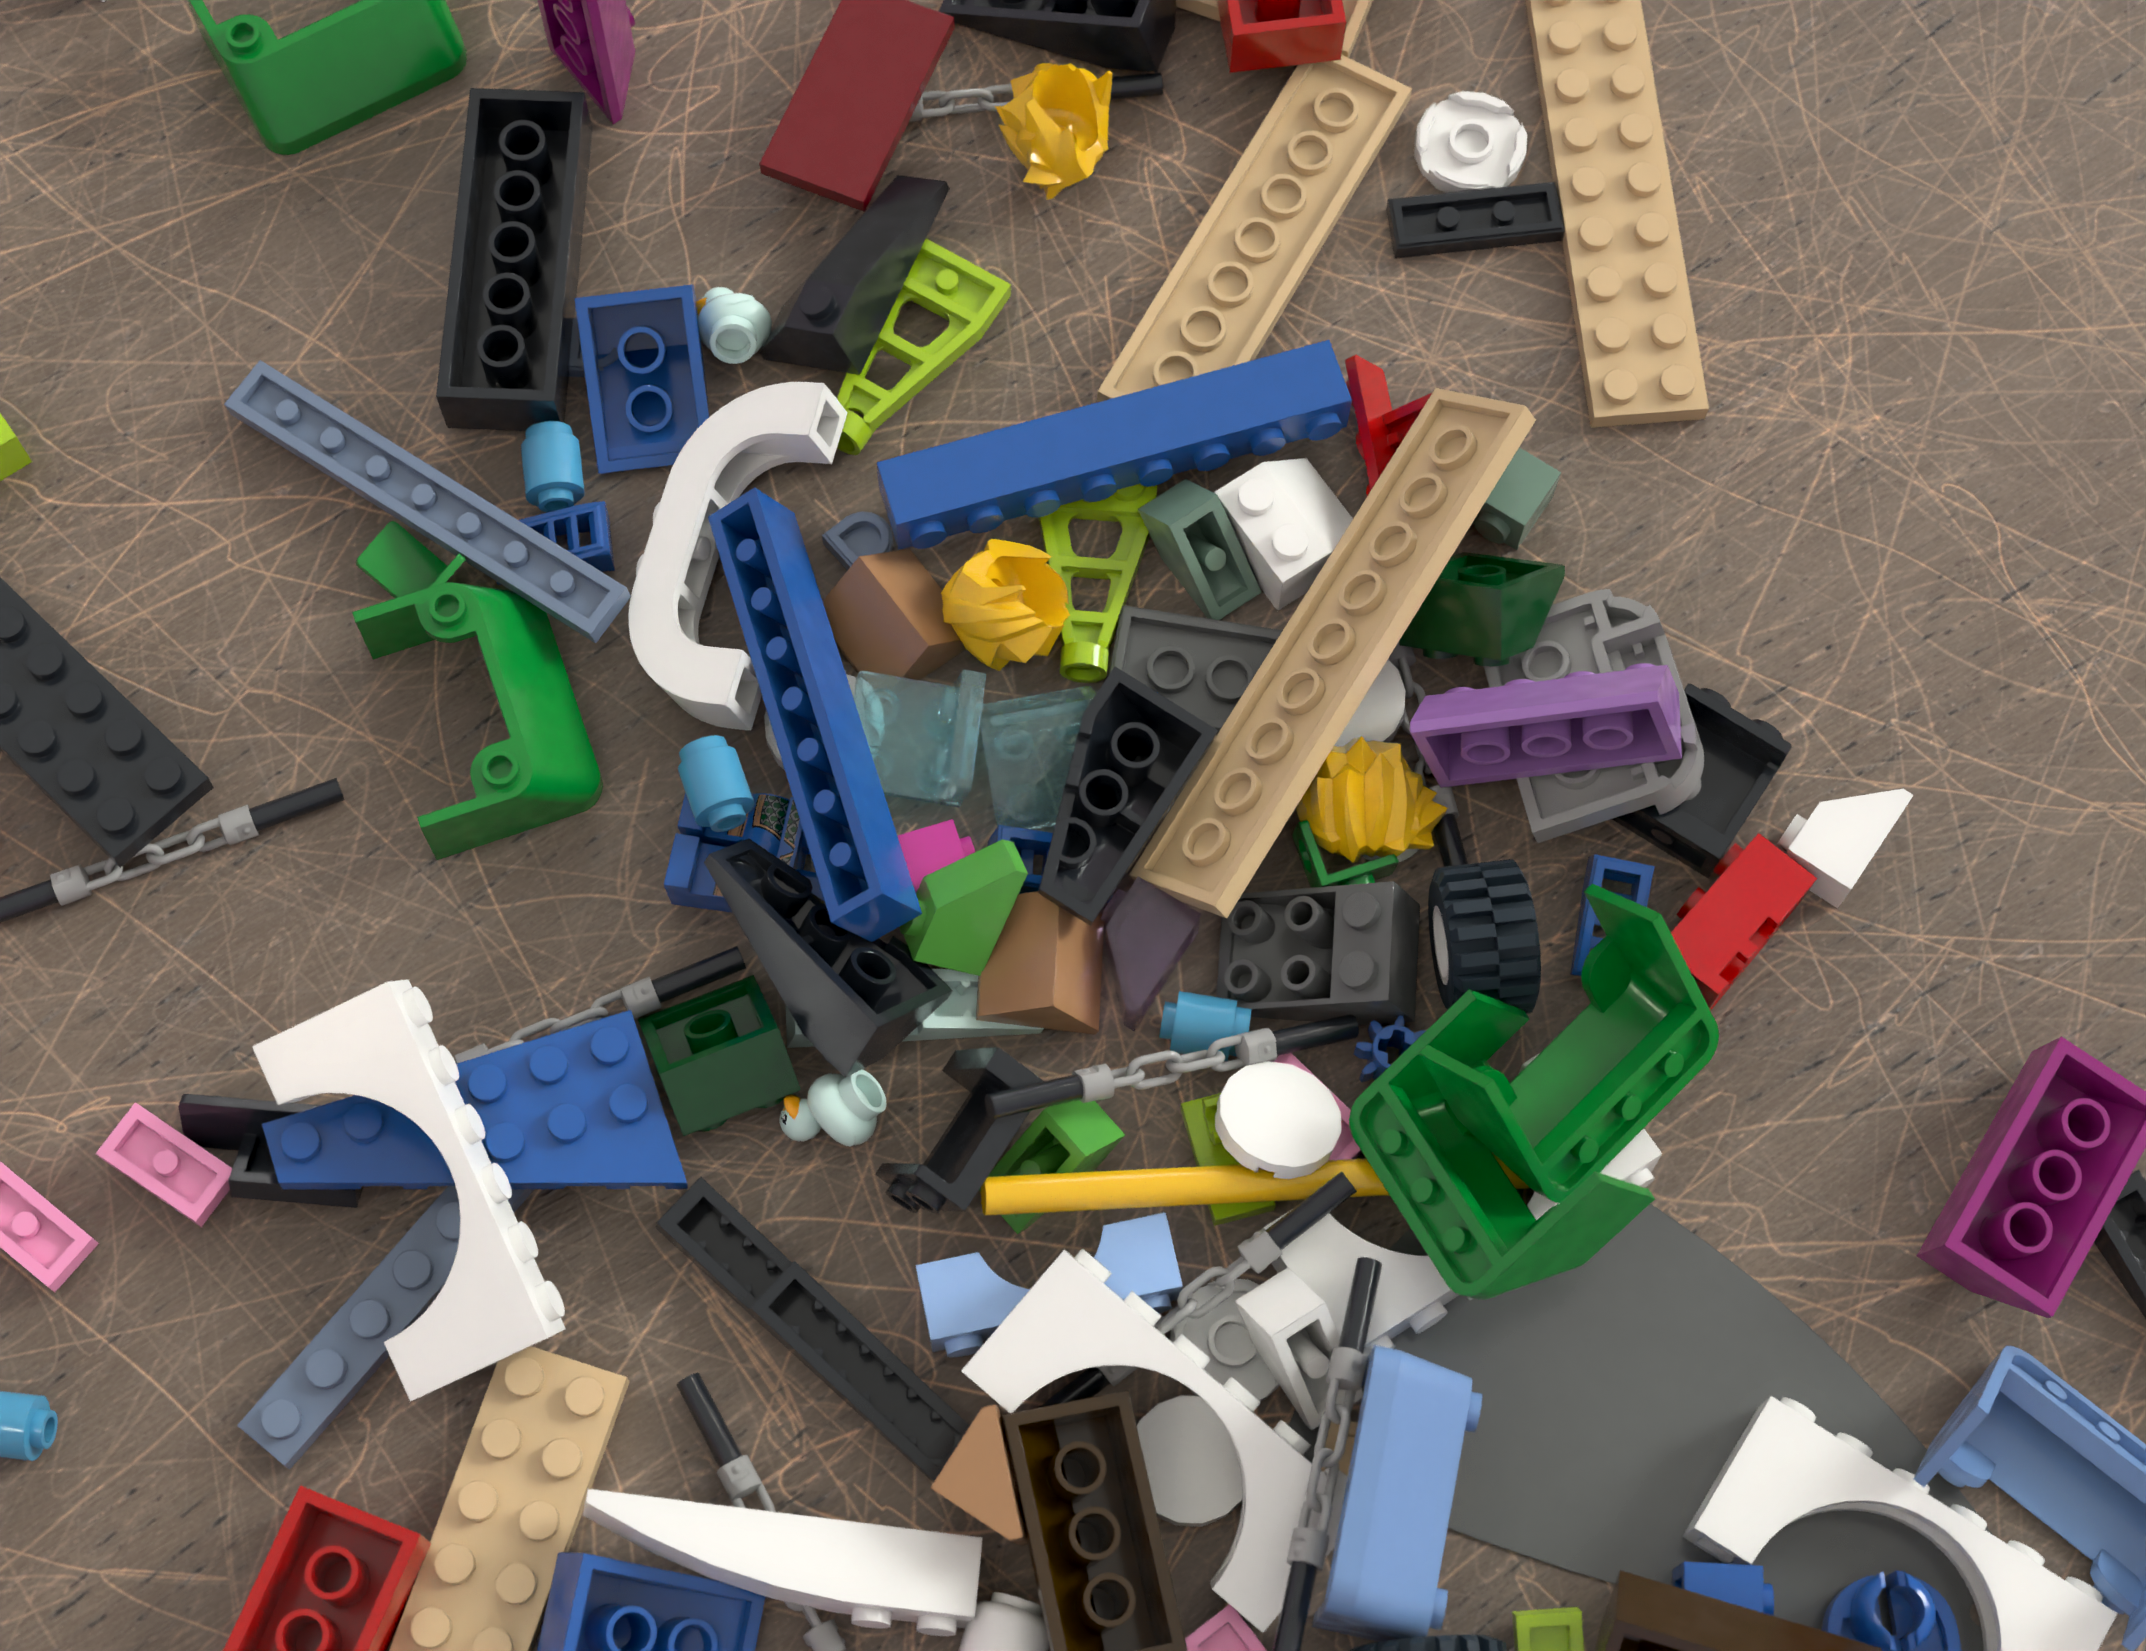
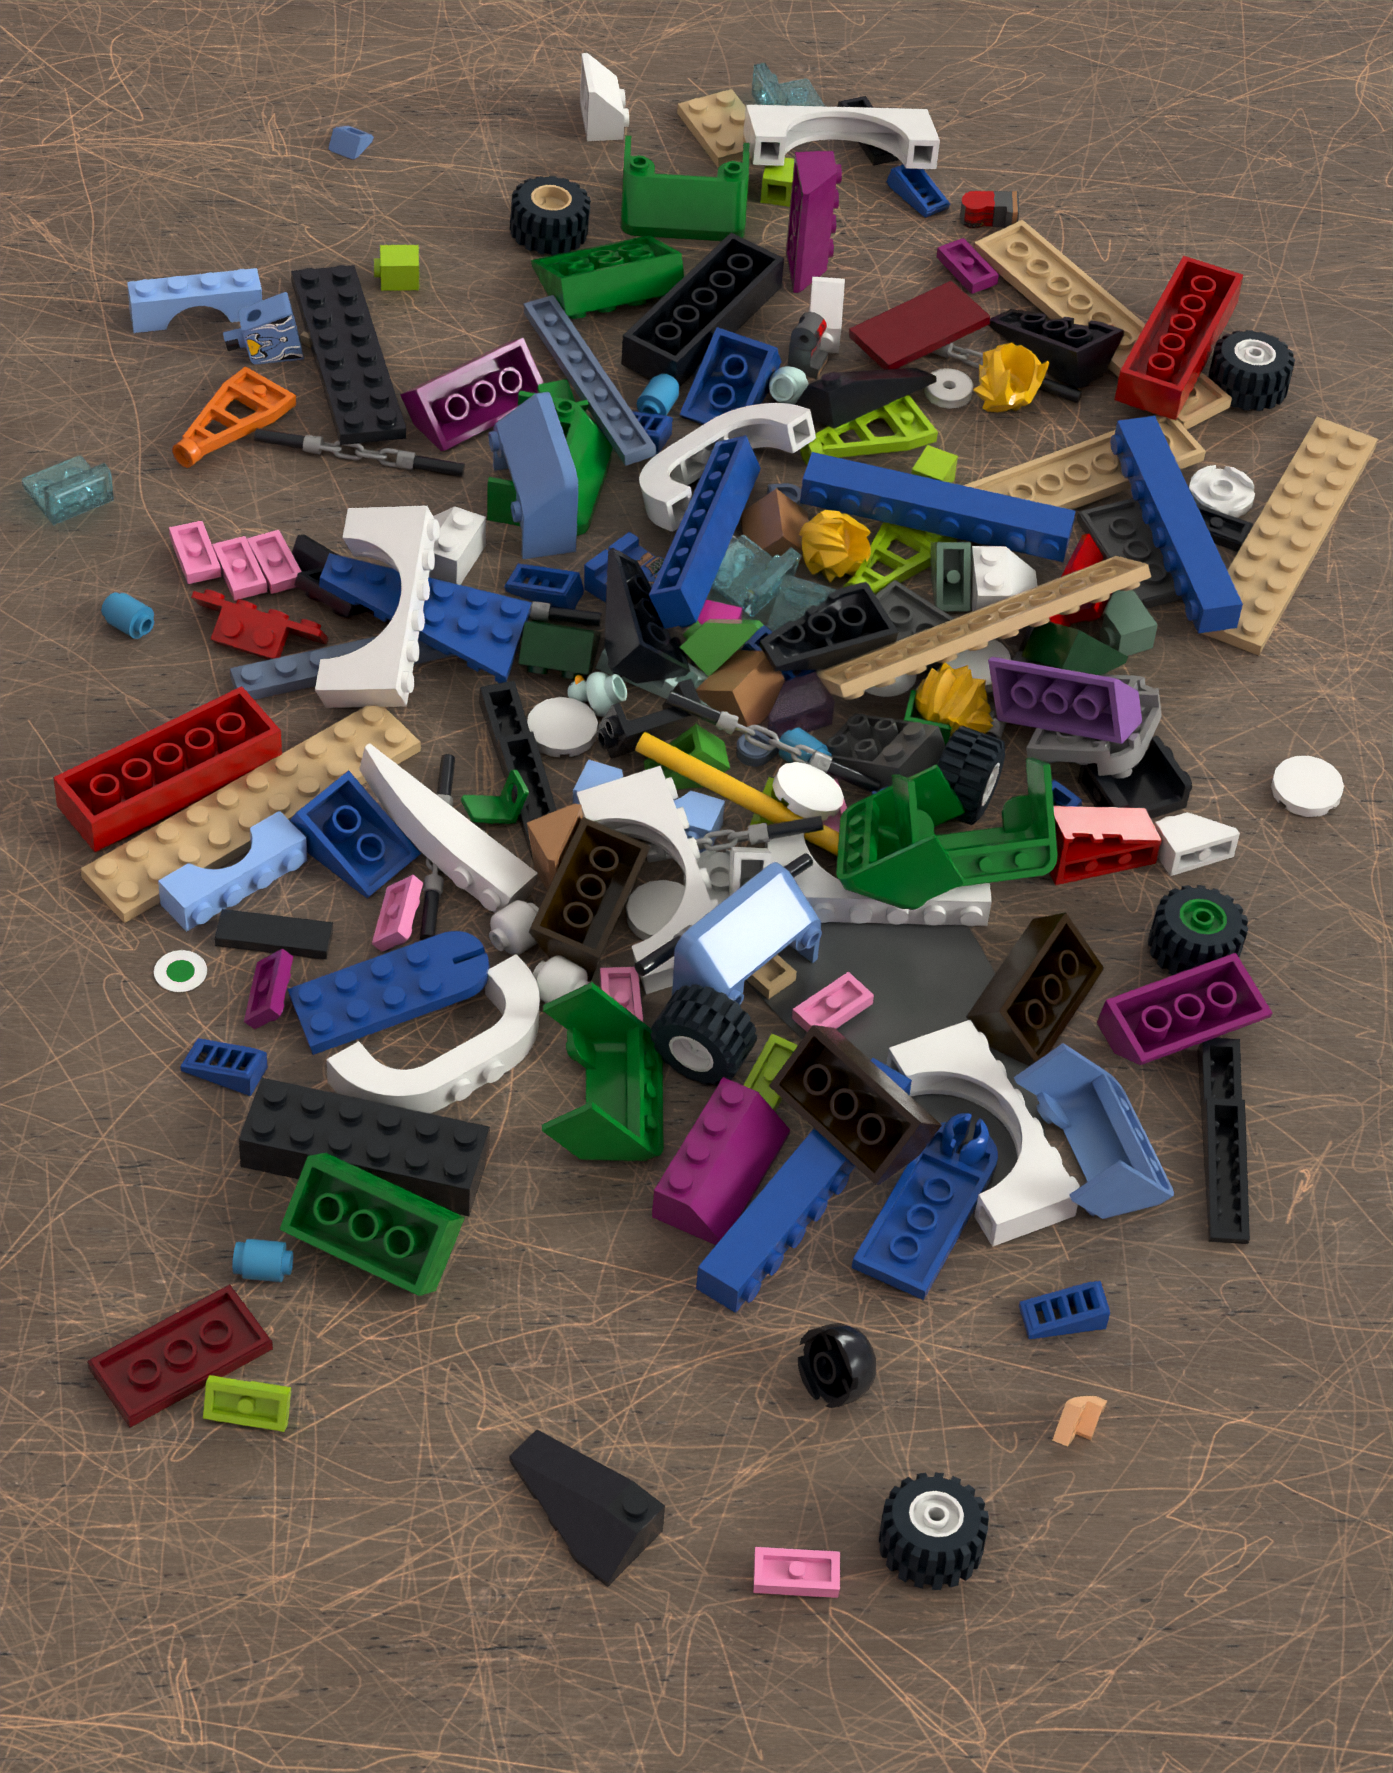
camera: 30 degrees right, 20 degrees down
(120, 1213) = (240, 568): none -> bright pink plate
(151, 201) = (549, 215): none -> black wheel
(221, 1322) = (254, 631): none -> red bracket
(265, 633) = (472, 394): none -> magenta slope
(318, 262) = (610, 275): none -> green slope
(422, 942) = (458, 545): none -> white slope
(488, 759) = (543, 474): none -> medium blue windscreen
(642, 959) = (567, 585): none -> blue slope
(709, 161) = (827, 301): none -> white slope
(715, 783) = (637, 532): dark azure brick -> none
(717, 234) = (806, 343): none -> dark grey leg
(817, 1202) = (563, 726): none -> white tile
(821, 1427) = (498, 808): none -> green bracket
(968, 158) = (949, 398): none -> white piece
(1053, 367) = (936, 464): none -> lime brick
(1120, 1045) = (752, 754): none -> sand blue tile
(1421, 327) = (1122, 533): none -> dark grey tile
(1471, 265) = (1176, 525): none -> blue brick
(1549, 1482) = (834, 1004): none -> bright pink plate
(1806, 1261) = (1036, 989): none -> dark brown slope
(1923, 625) = (1307, 786): none -> white tile
(1963, 1010) = (1196, 928): none -> black wheel

